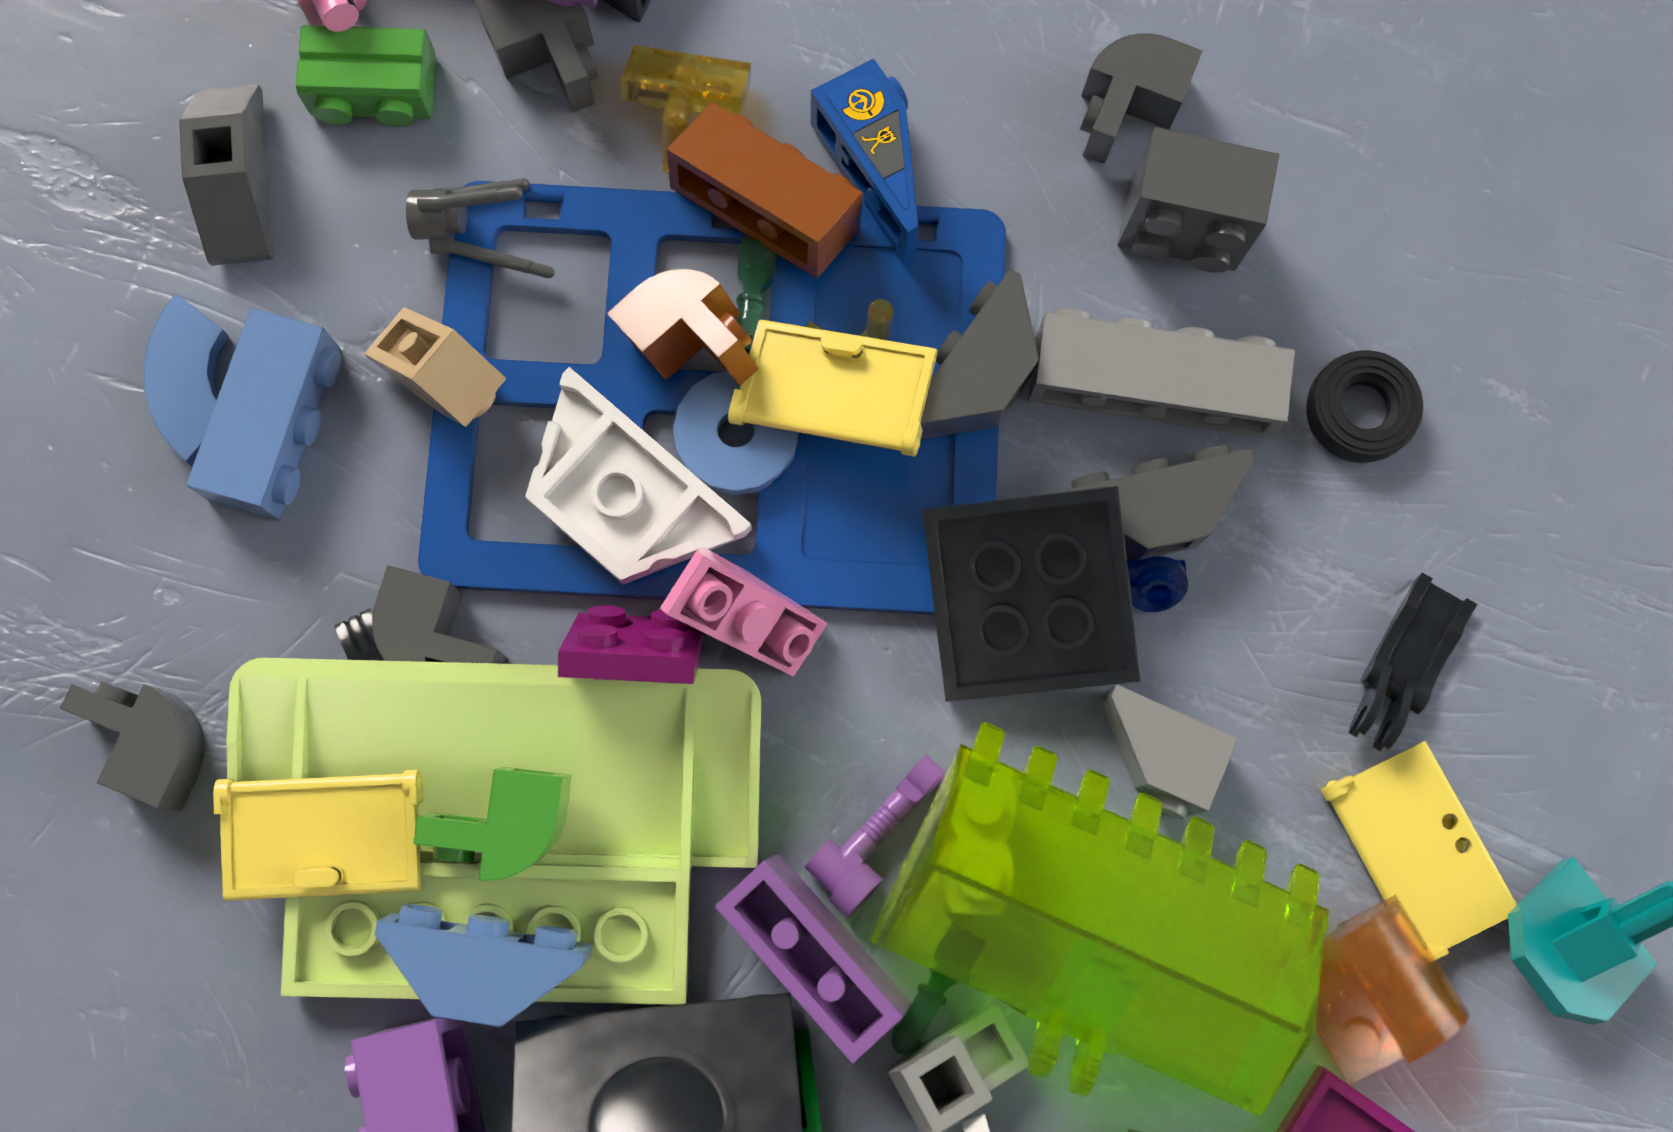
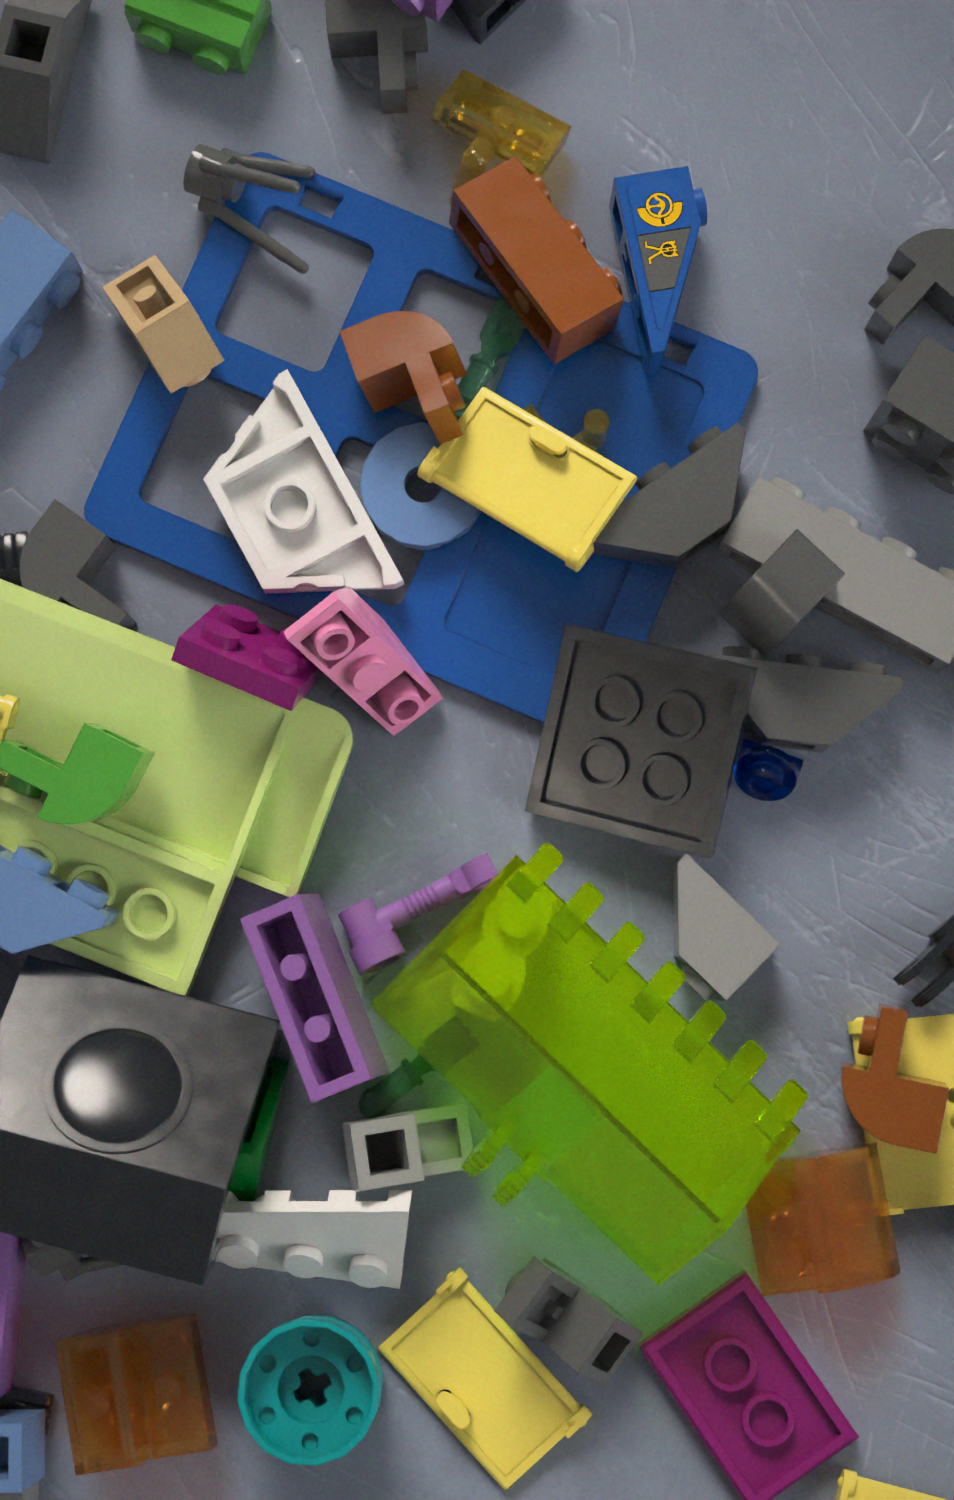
camera: 30 degrees right, 5 degrees up
(1113, 408) = (781, 593): none -> dark grey brick
(1396, 851) = (887, 1103): none -> dark orange brick

